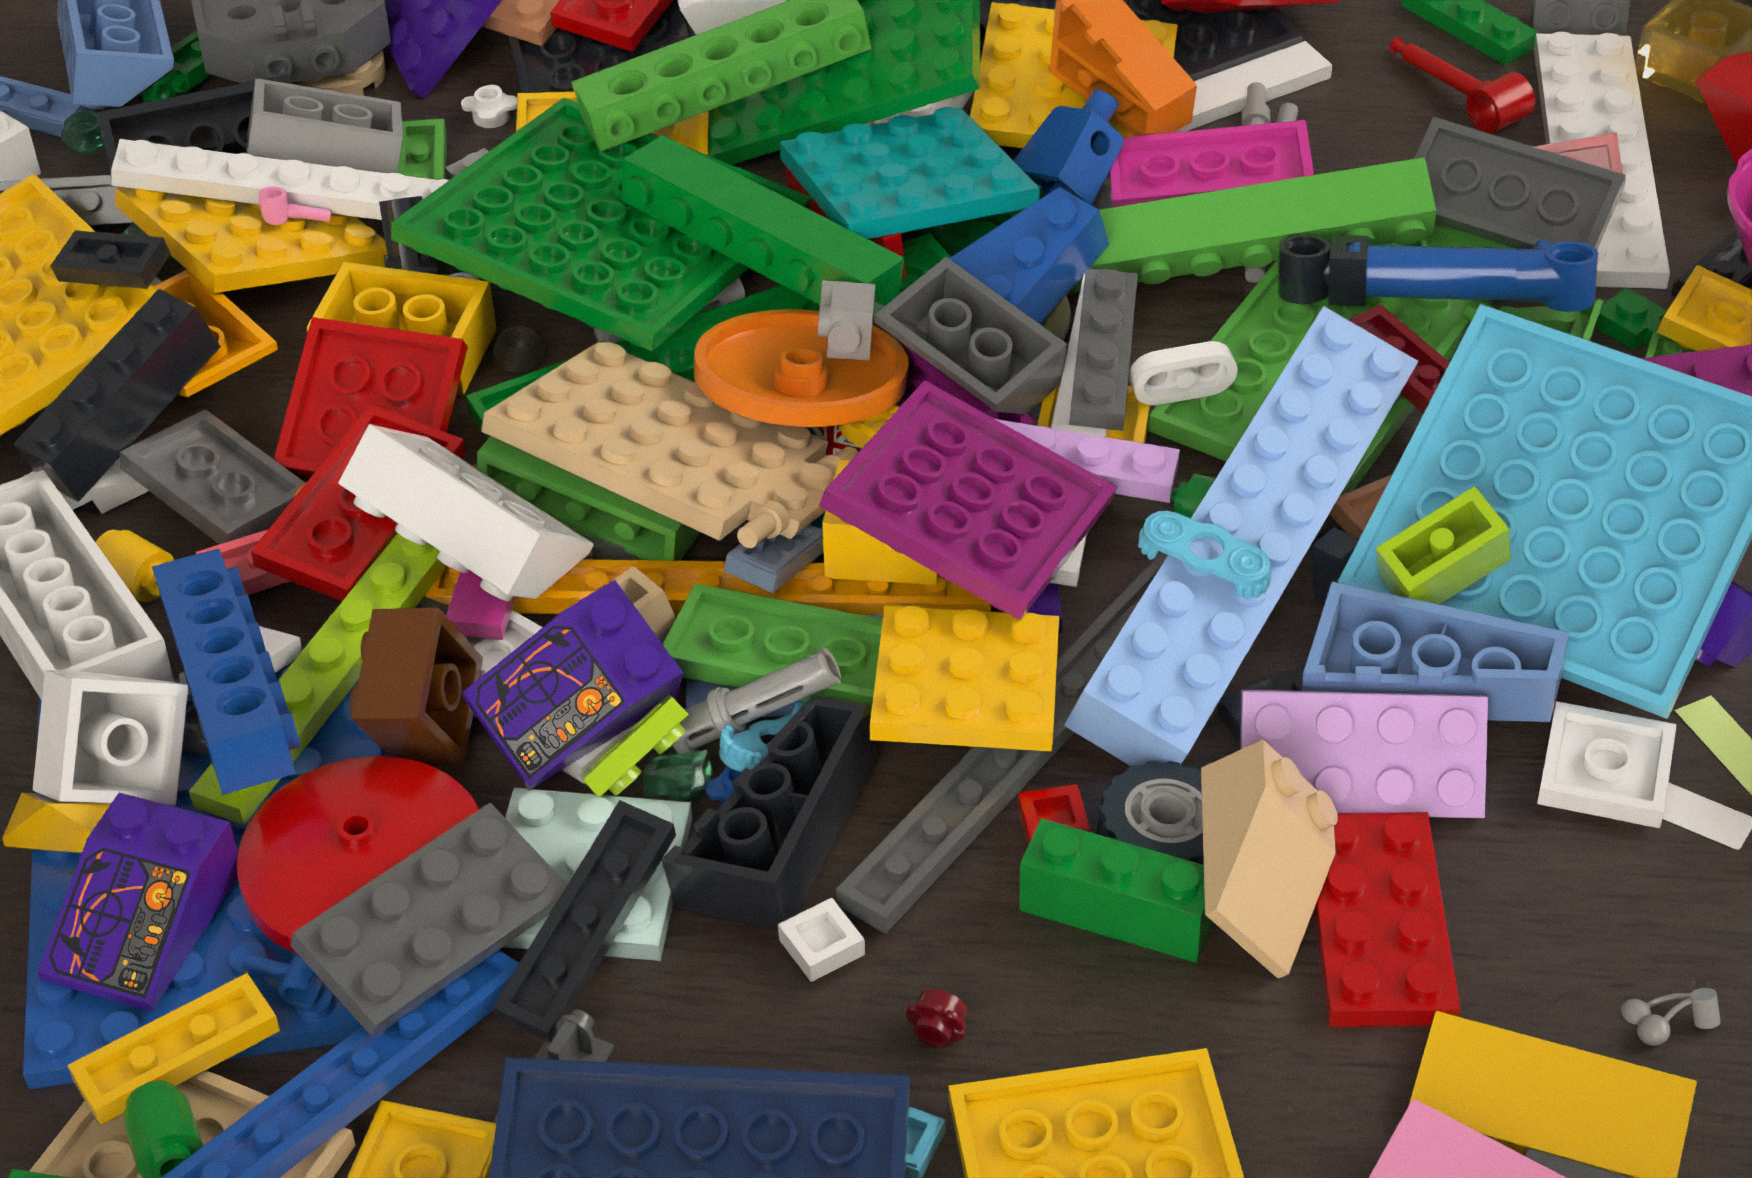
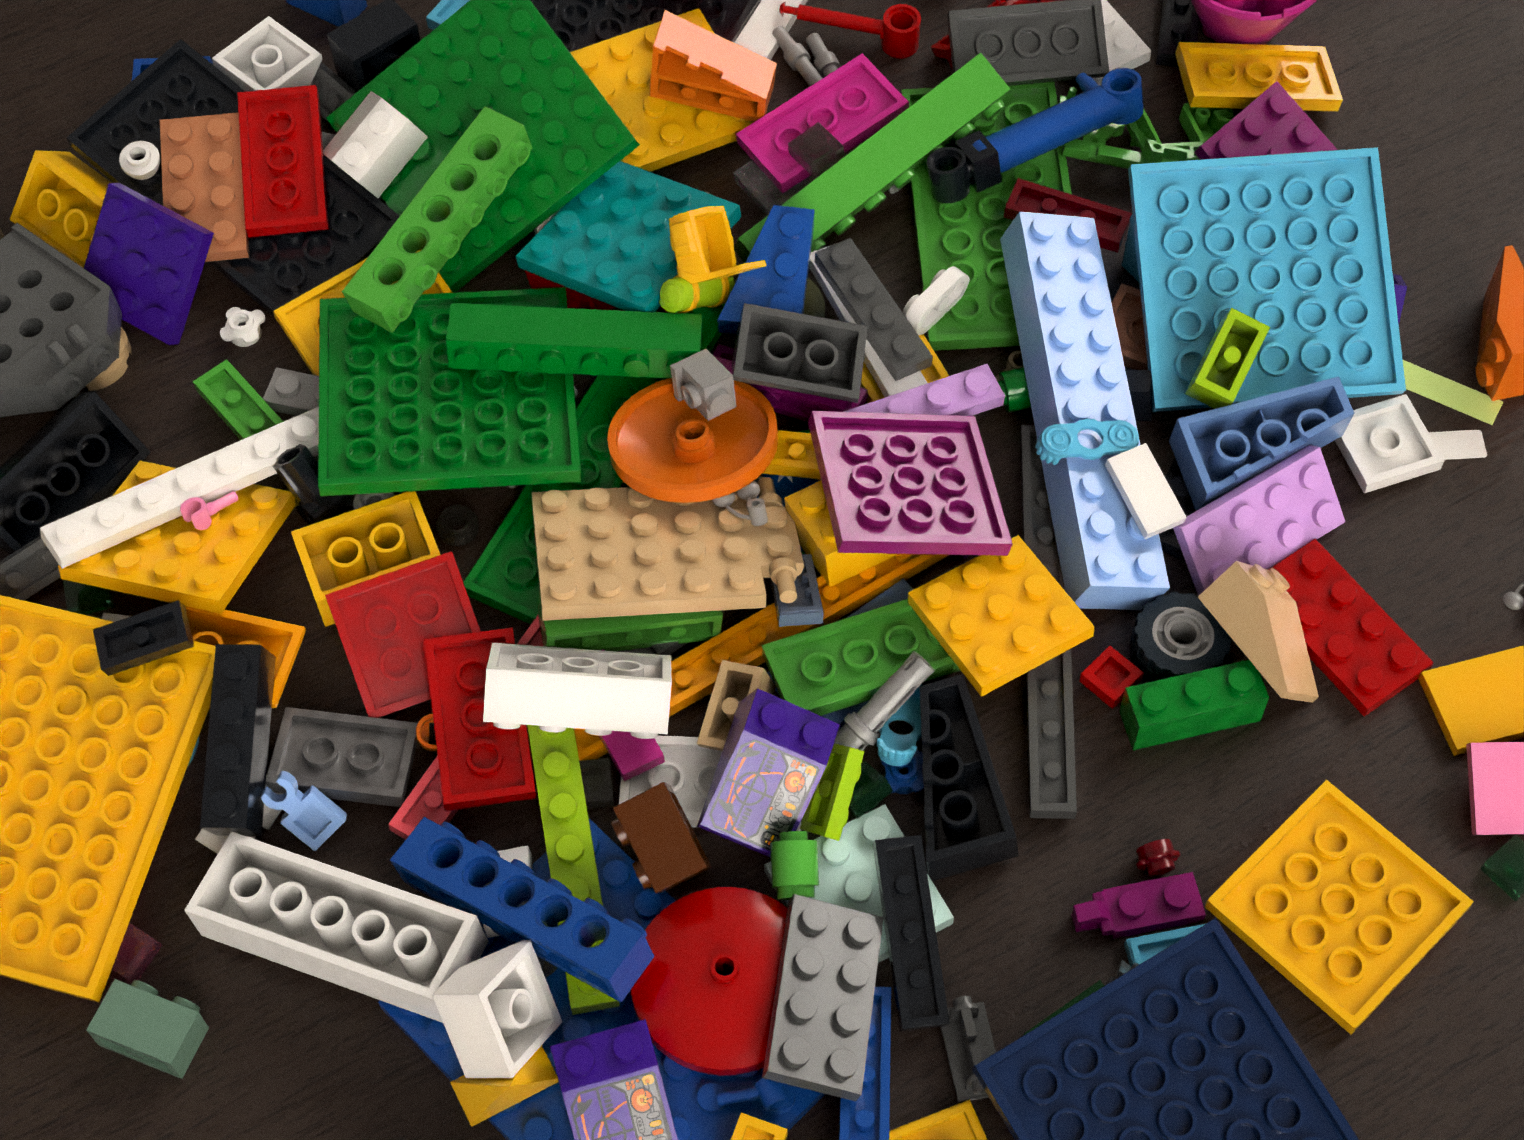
camera: 35 degrees left, 15 degrees up
(133, 561) = (351, 854): yellow brick -> none
(135, 499) = (307, 815): none -> light blue plate
(324, 127) = (164, 426): light grey brick -> none
(526, 784) = (794, 865): none -> bright green brick
(794, 447) = (755, 506): none -> light grey piece
(821, 939) = (1046, 848): white plate -> none
(861, 1046) = (1142, 907): none -> magenta hinge
(946, 203) = (703, 259): none -> yellow piece
(1074, 148) = (721, 155): blue torso -> none
(1172, 177) = (816, 149): none -> clear smoke plate
(1229, 631) = (1145, 491): none -> white tile
(1386, 130) = (897, 30): none -> red piece
(1630, 318) = (1160, 99): green plate -> none

